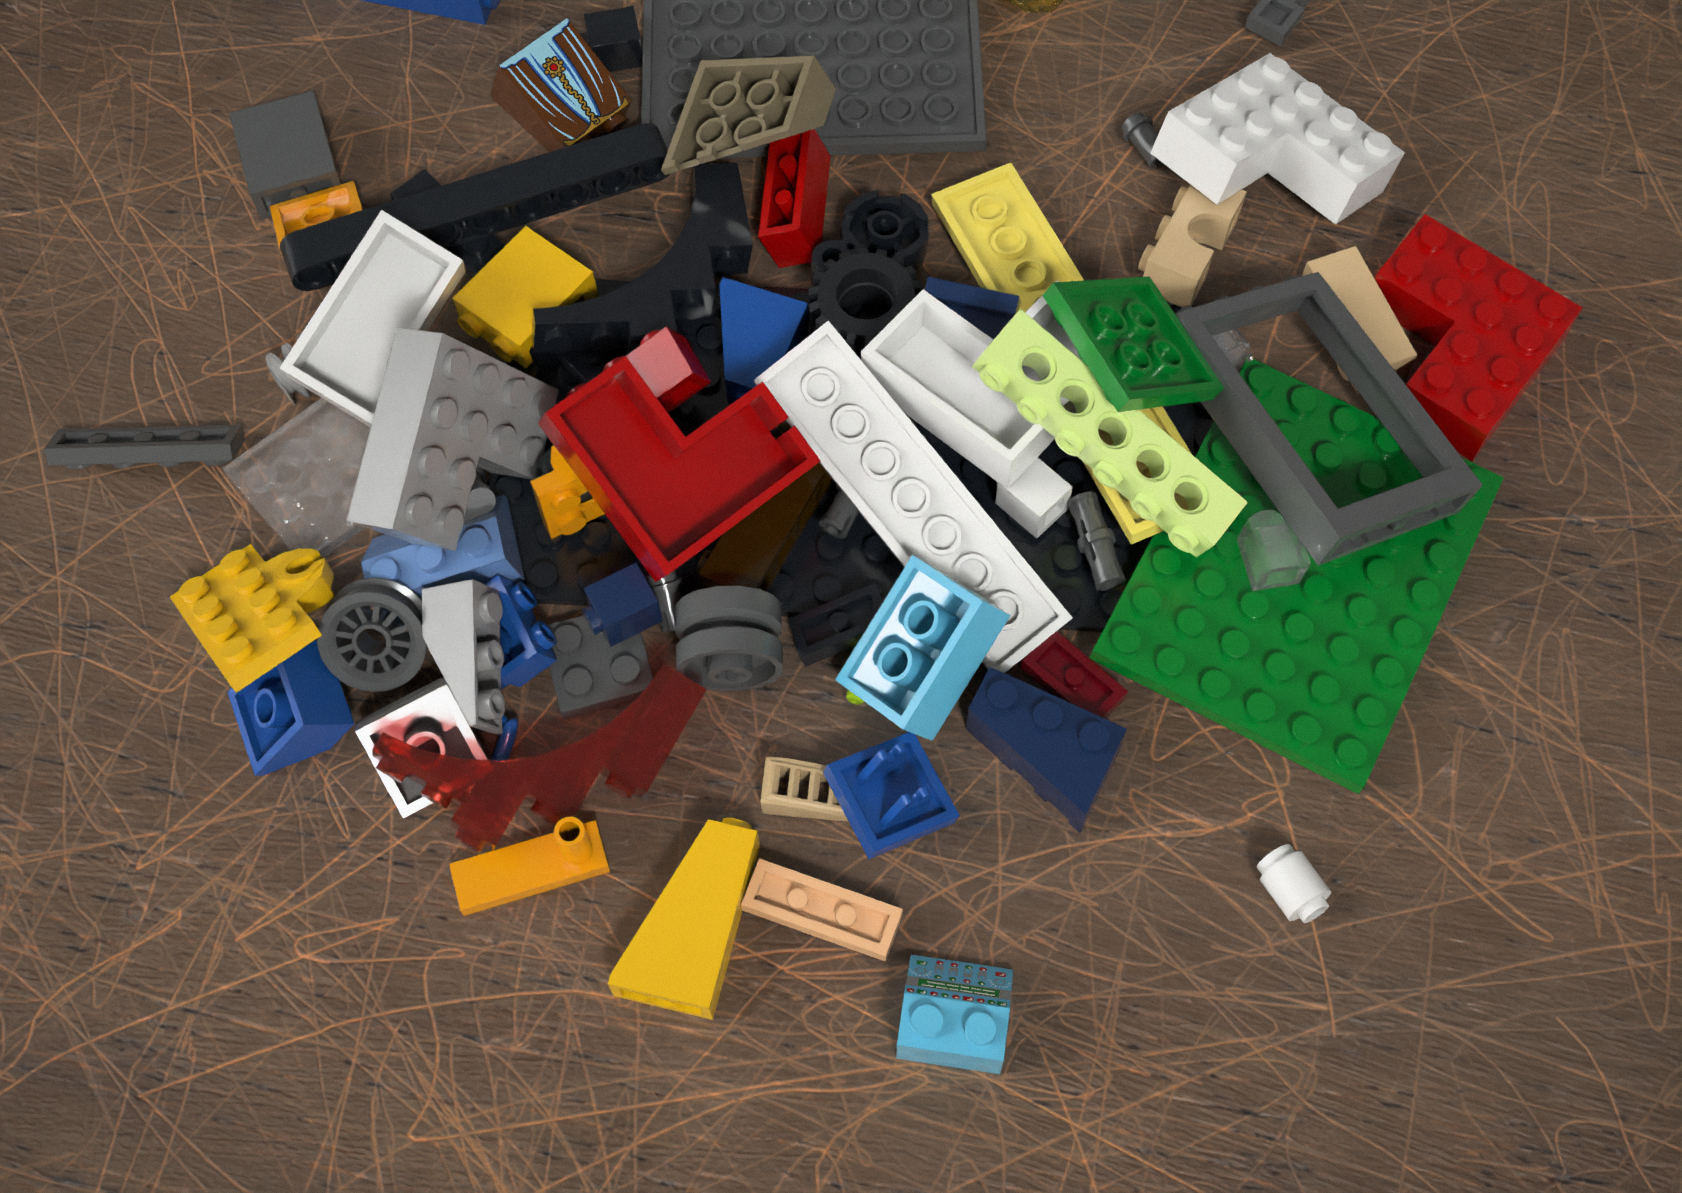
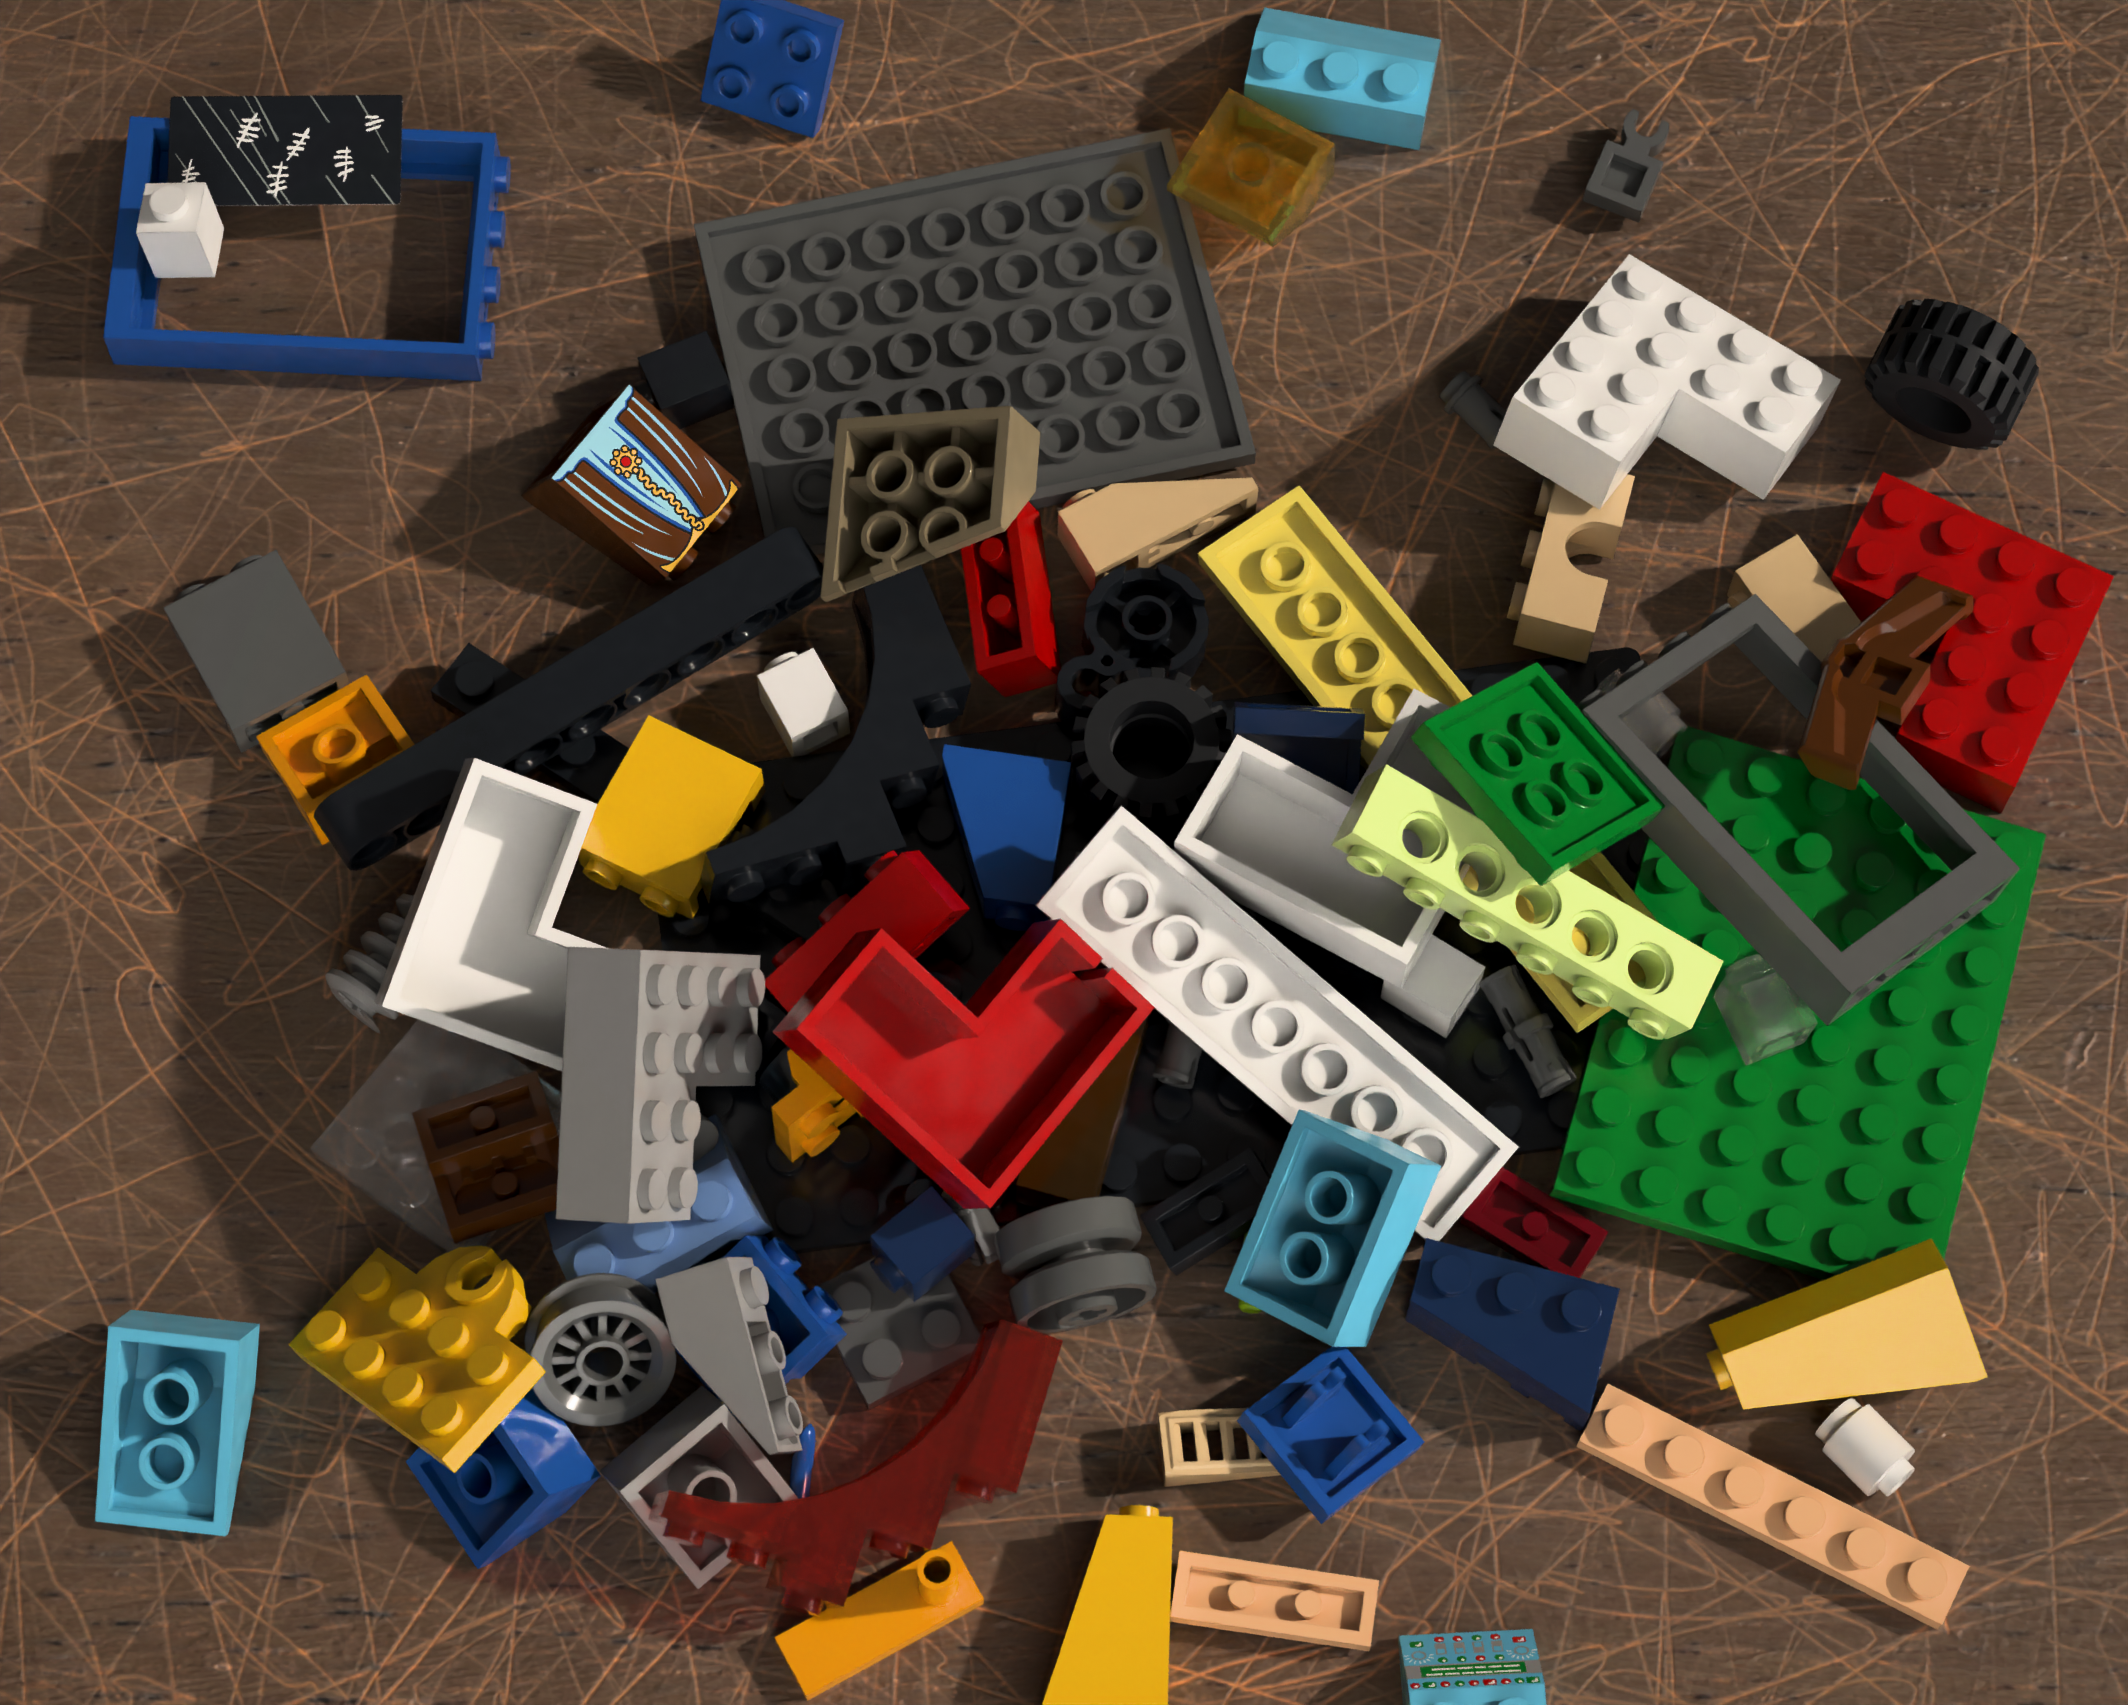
camera: 15 degrees left, 5 degrees up
(73, 631) = (174, 1420): none -> medium azure slope
(134, 445) = (188, 1133): dark grey plate -> none
(323, 495) = (492, 1155): none -> reddish brown slope
(637, 241) = (803, 702): none -> white brick
(905, 168) = (1148, 521): none -> tan slope
(1216, 916) = (1773, 1506): none -> light nougat plate
(1298, 796) = (1851, 1335): none -> yellow slope
(1397, 334) = (1875, 676): none -> reddish brown plate
(1485, 159) = (1951, 374): none -> black tyre

